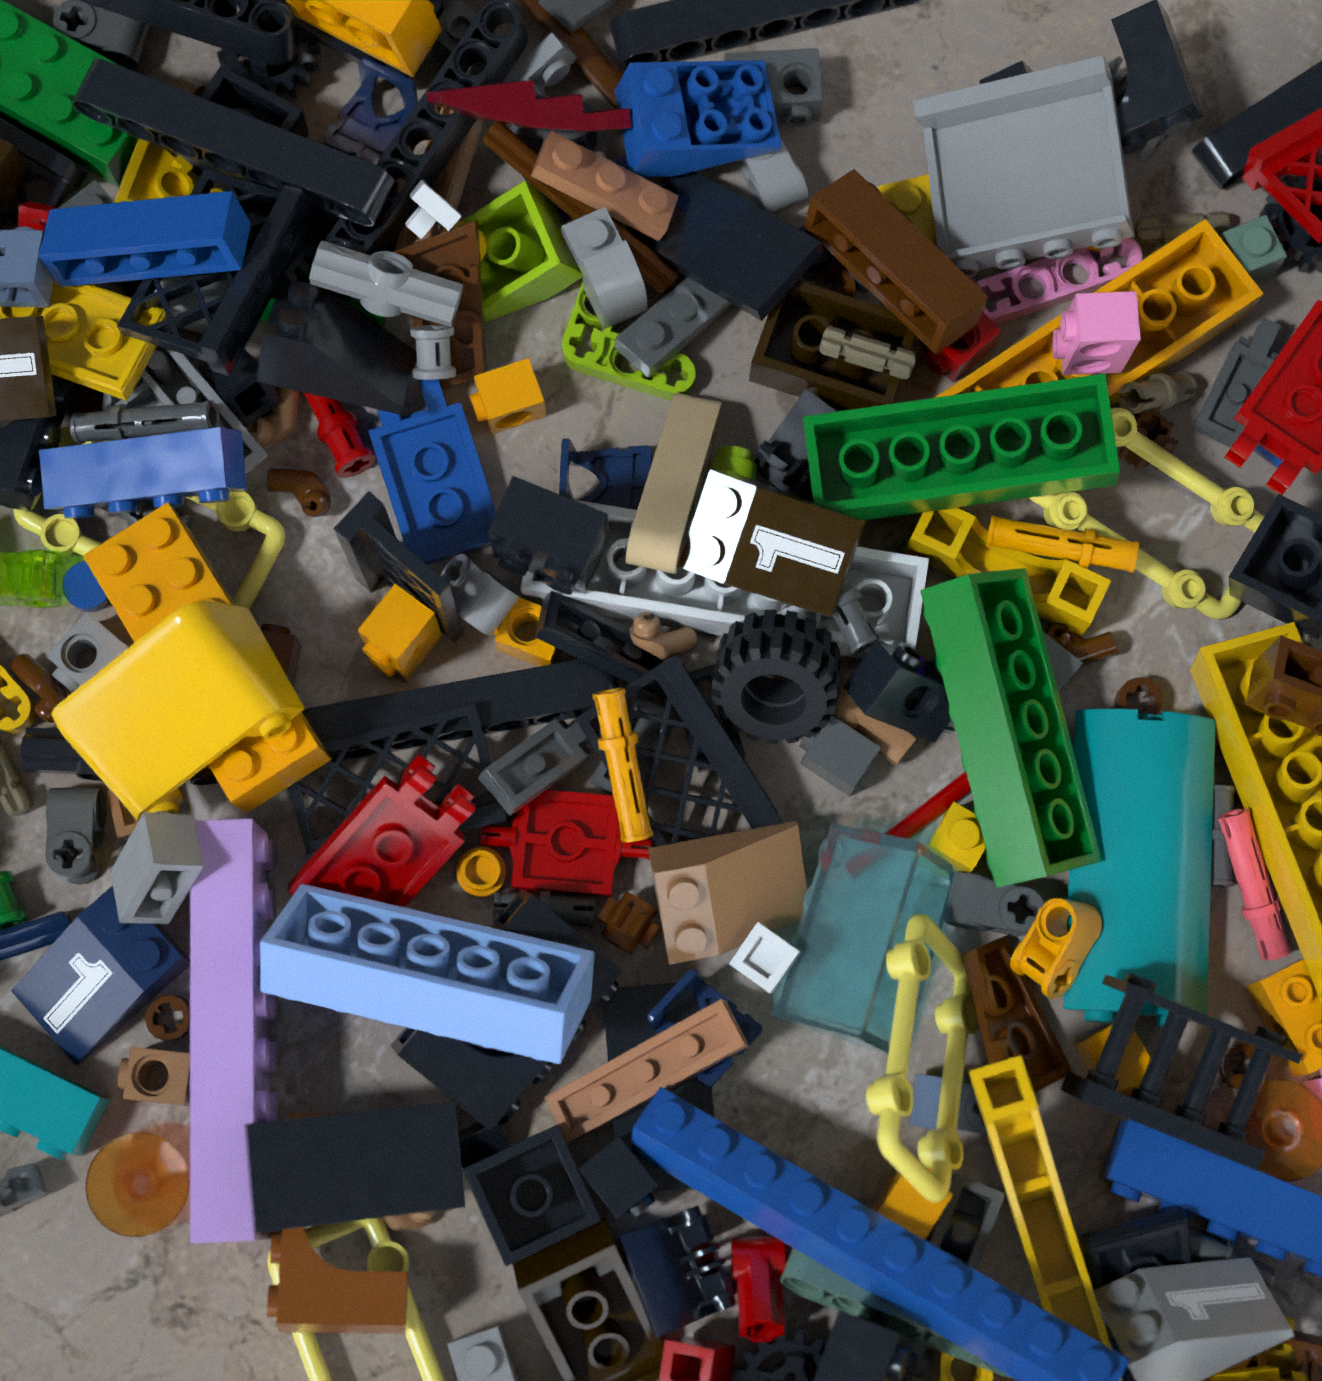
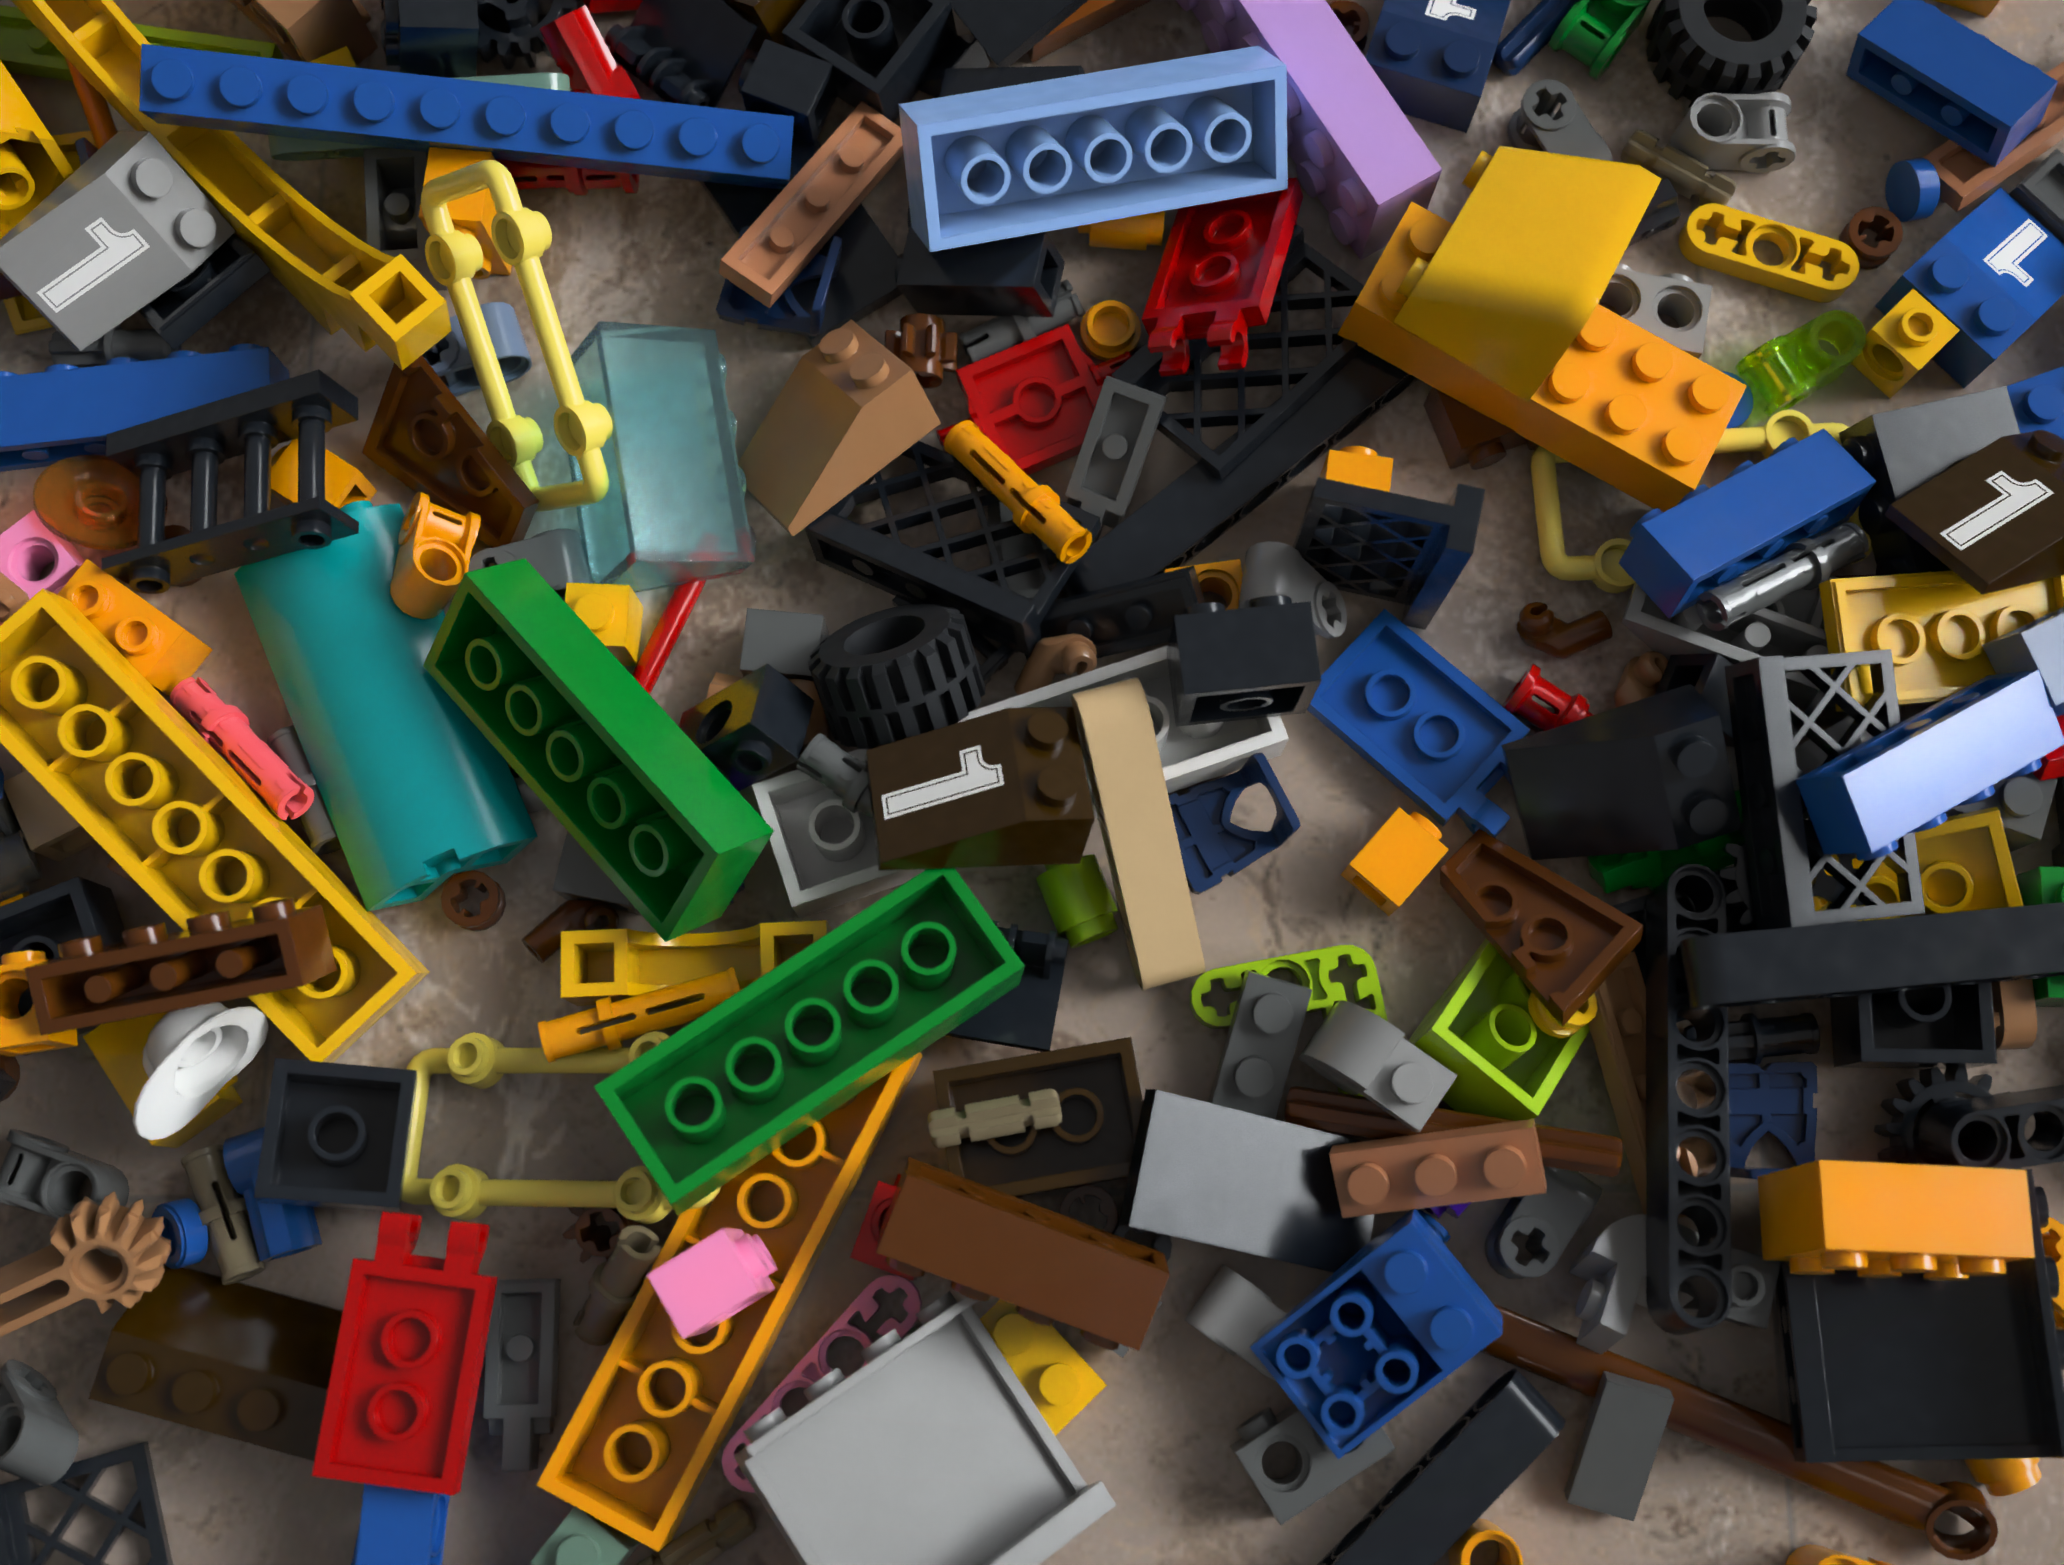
camera: 155 degrees right, 0 degrees up
(41, 682) = (1674, 257): reddish brown arm -> none
(156, 868) = (1447, 112): light grey brick -> none
(385, 283) = (1619, 881): light grey piece -> none
(431, 208) = (1625, 1007): white tile -> none
(433, 352) = (1511, 823): light grey bush -> none
(516, 106) = (1612, 1186): dark red slope -> none
(765, 957) = (750, 379): white tile -> none

